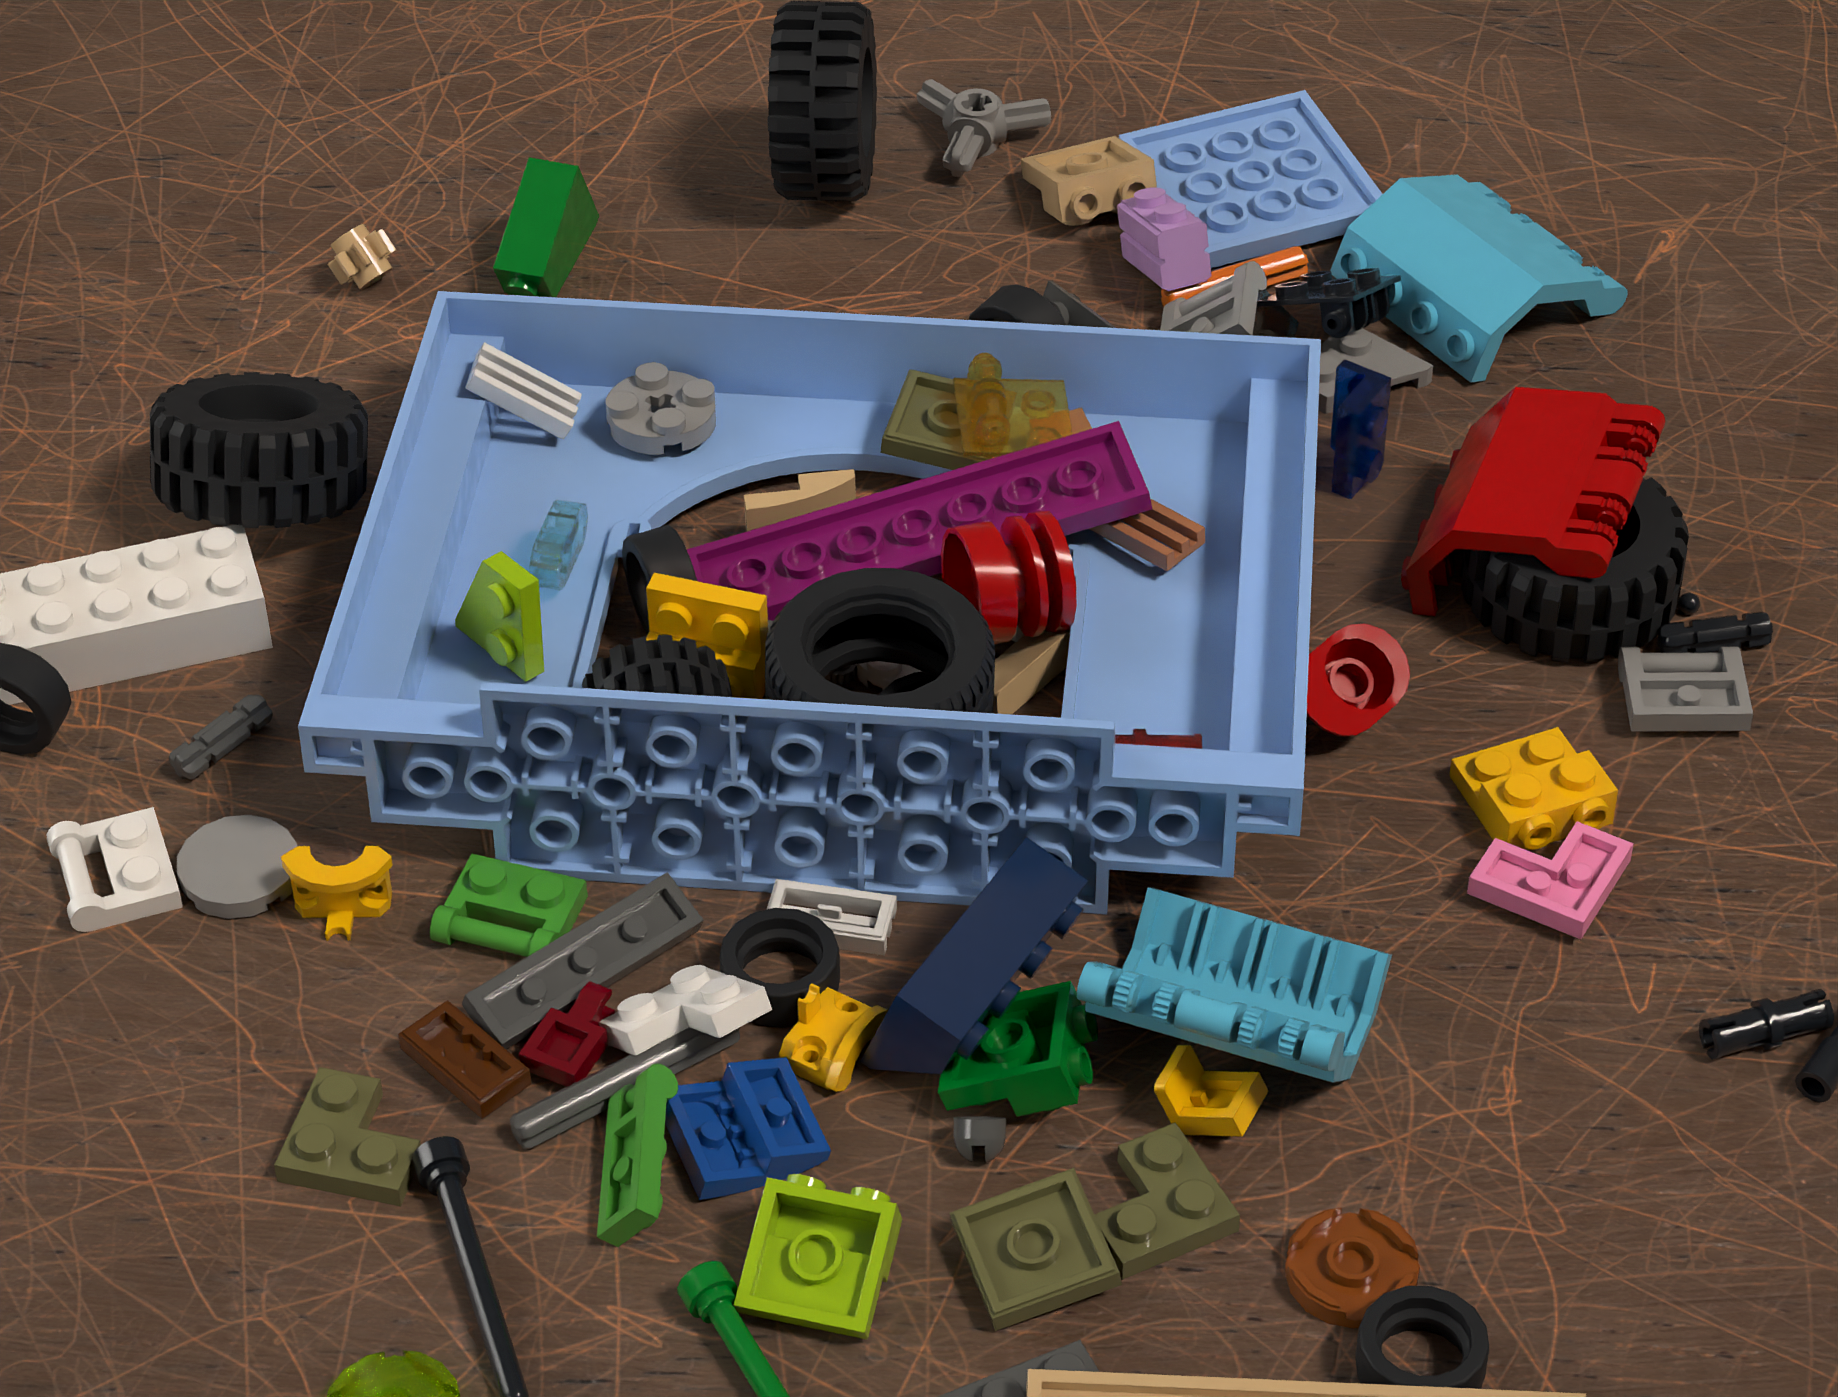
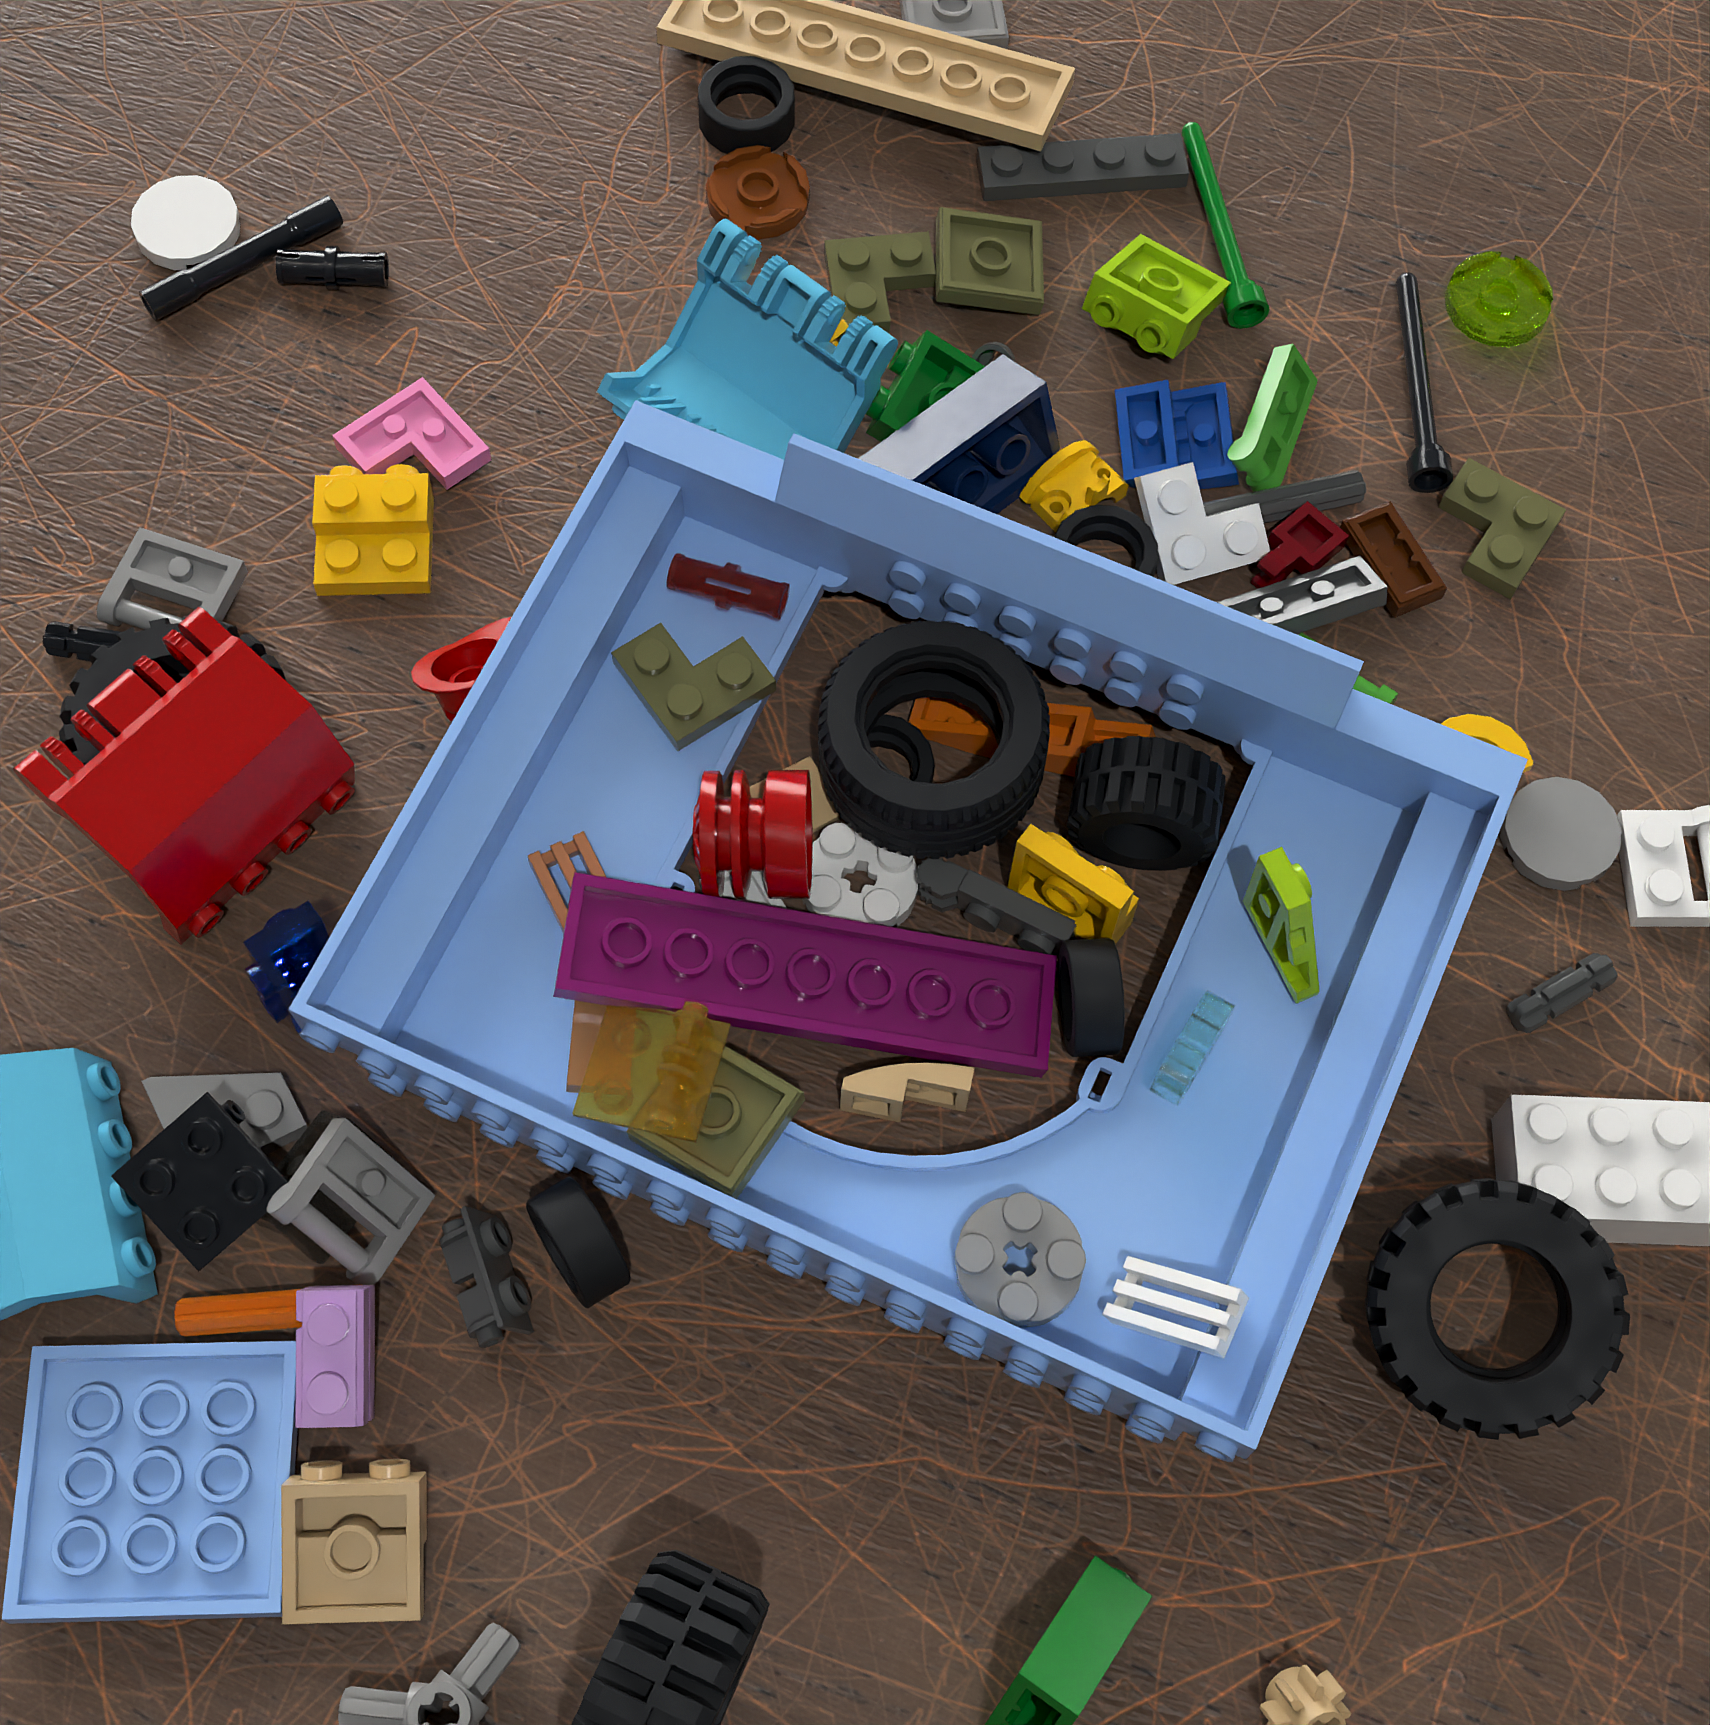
camera: 165 degrees left, 20 degrees up
(1139, 674) = (690, 698): none -> olive plate

